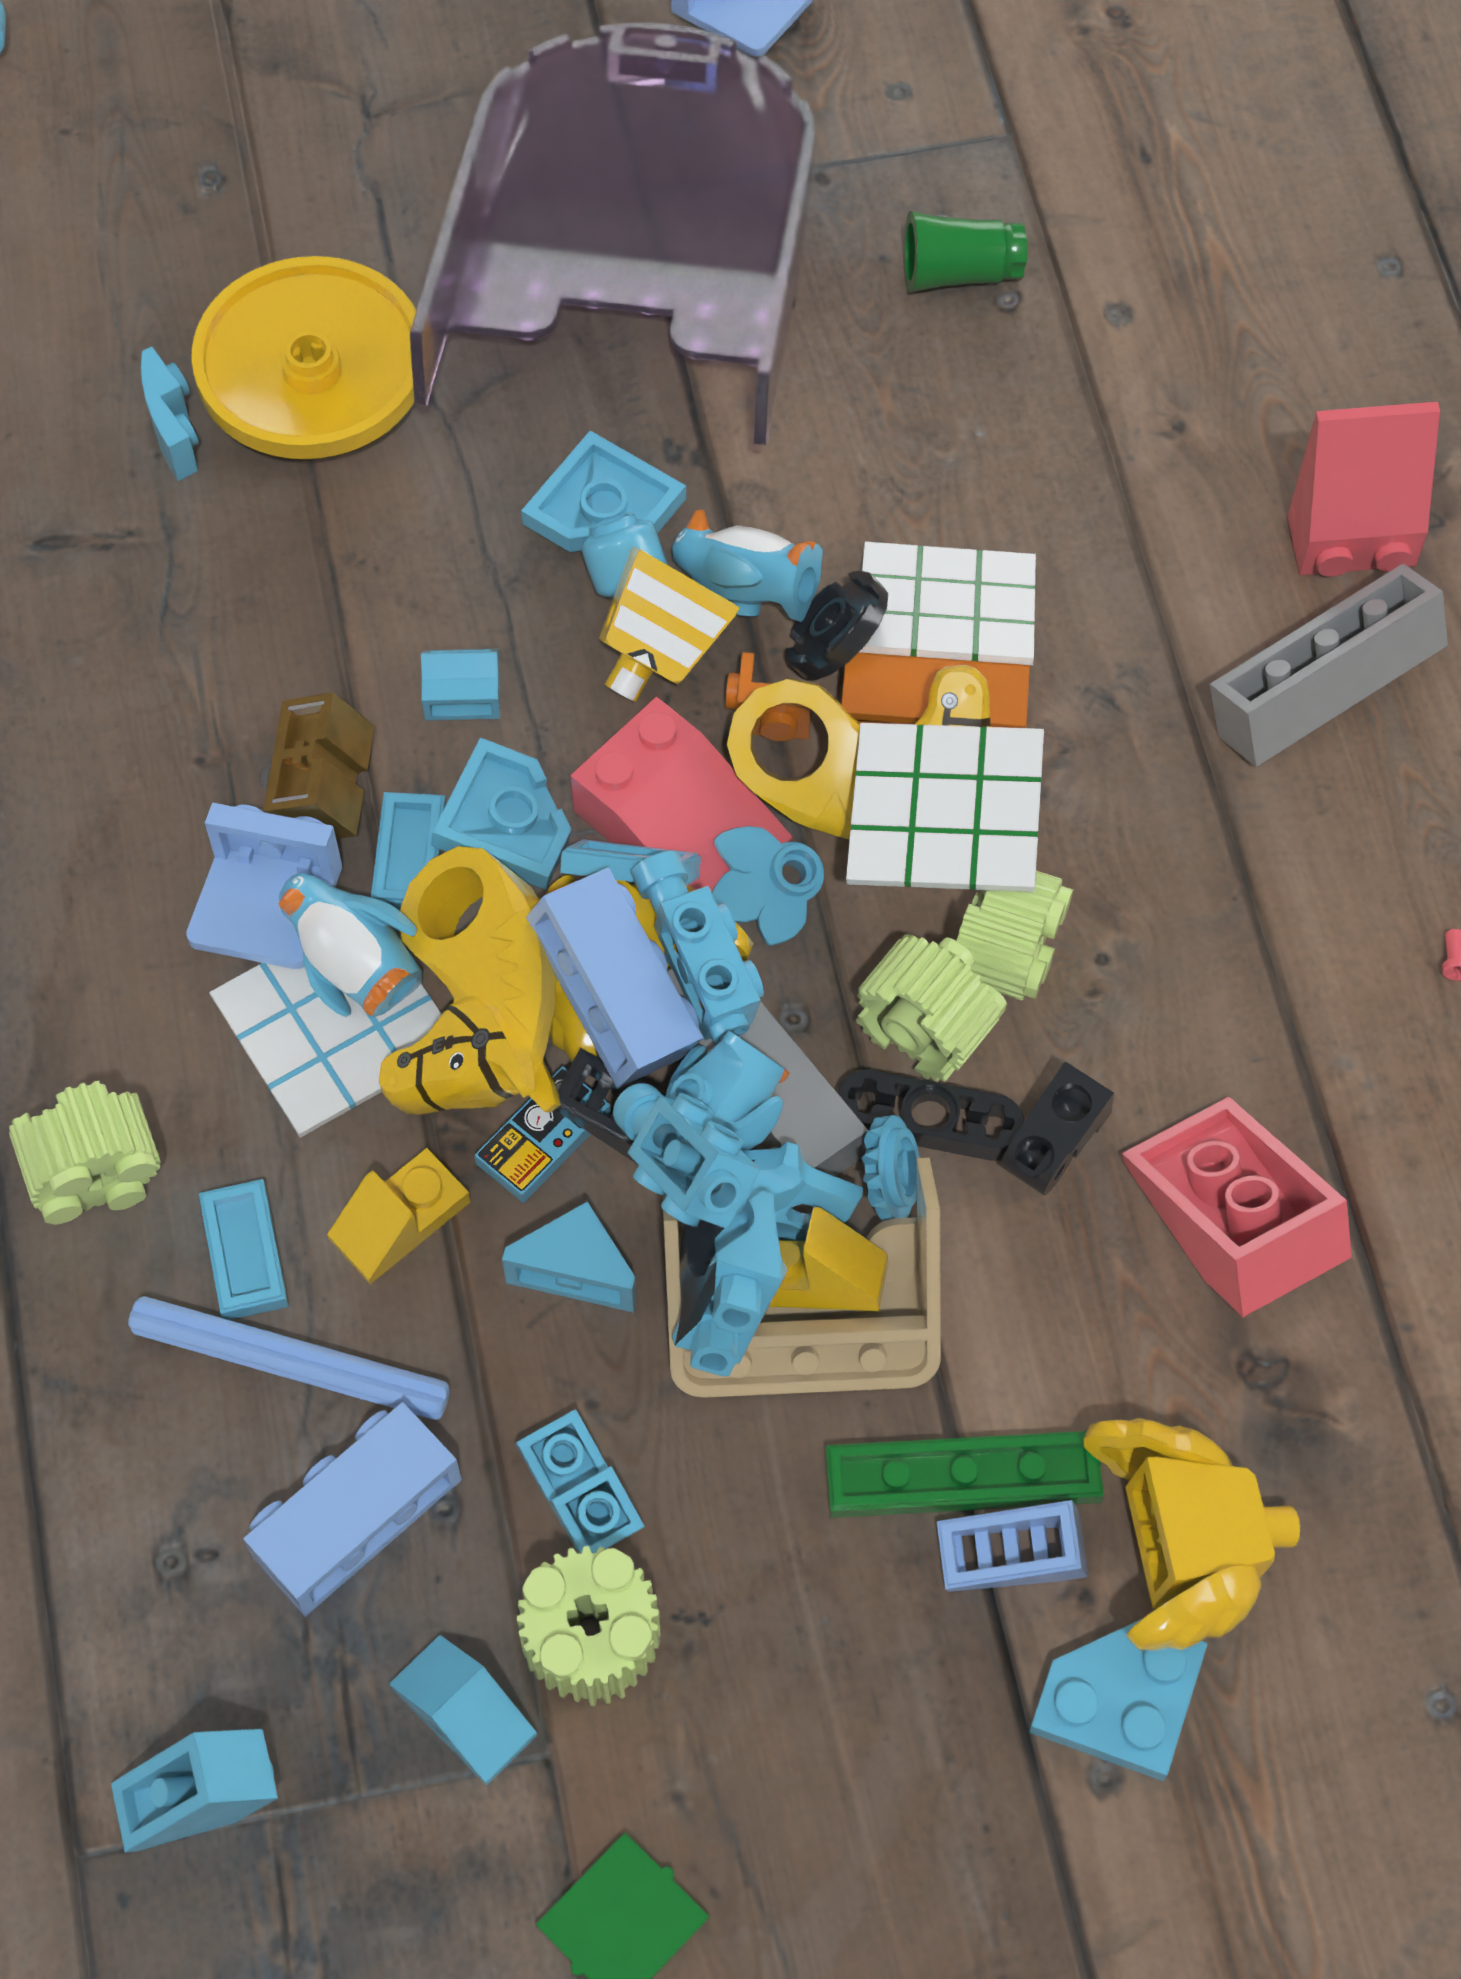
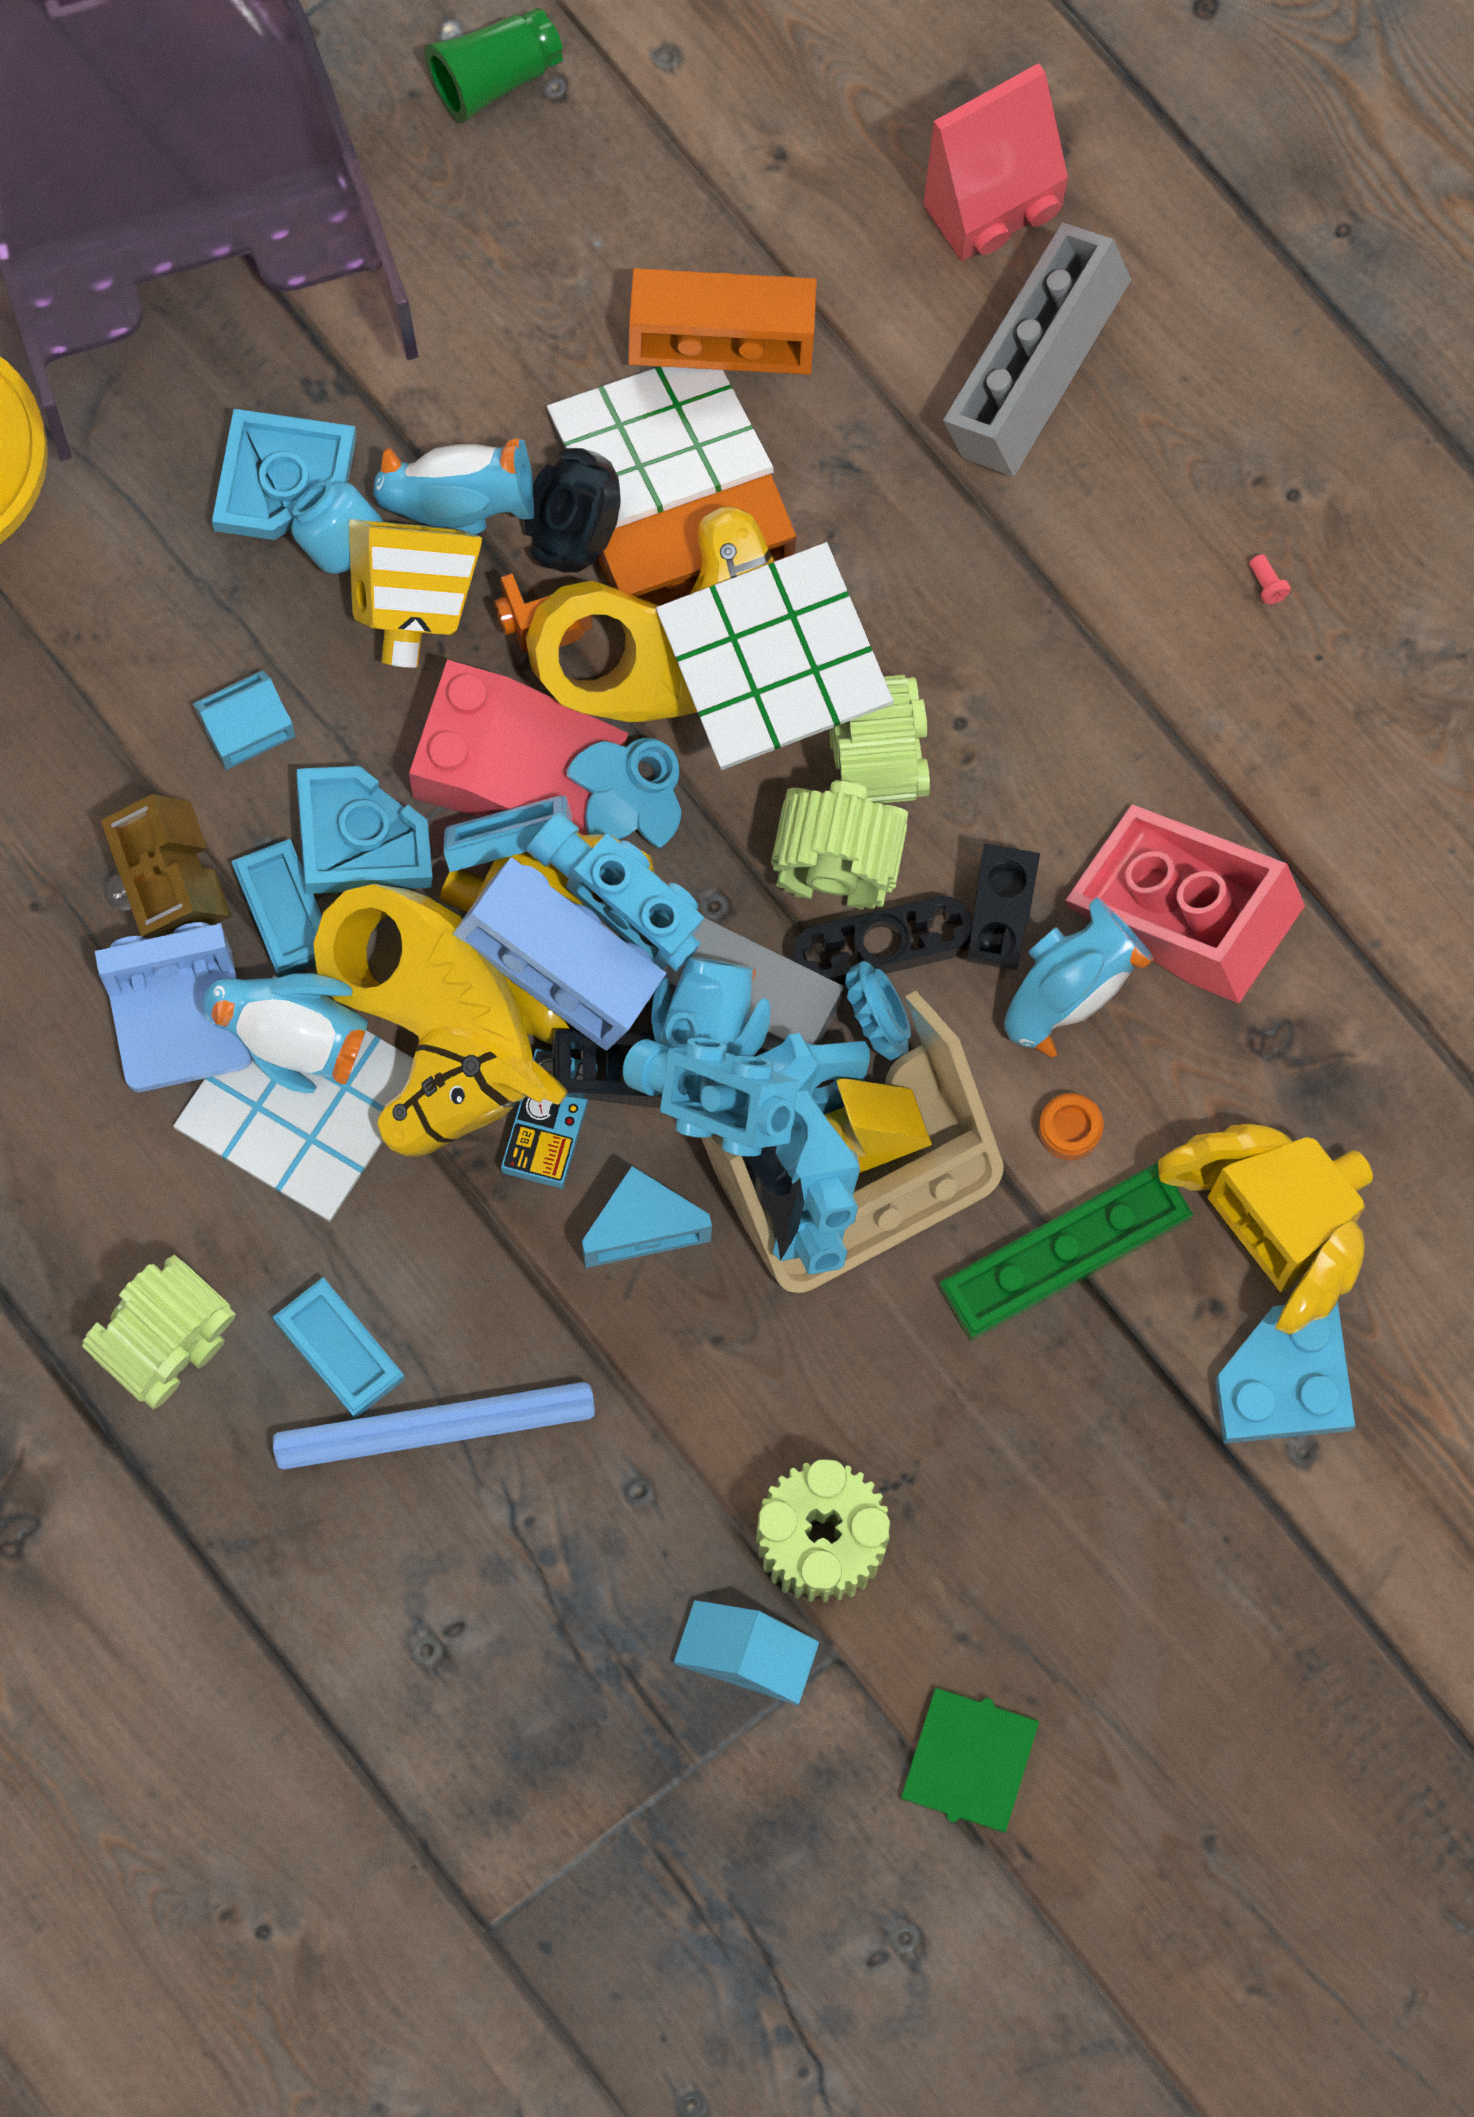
camera: 30 degrees left, 10 degrees up
(194, 1788) = (560, 1829): medium azure slope -> none
(352, 1507) = (563, 1528): light blue brick -> none
(396, 1215) = (459, 1252): yellow slope -> none
(579, 1484) = (746, 1416): medium azure slope -> none
(1015, 1572) = (1183, 1265): light blue slope -> none
(1025, 1361) = (1070, 1126): none -> orange tile
(1053, 530) = (722, 321): none -> orange brick
(1091, 1219) = (1073, 977): none -> medium azure animal

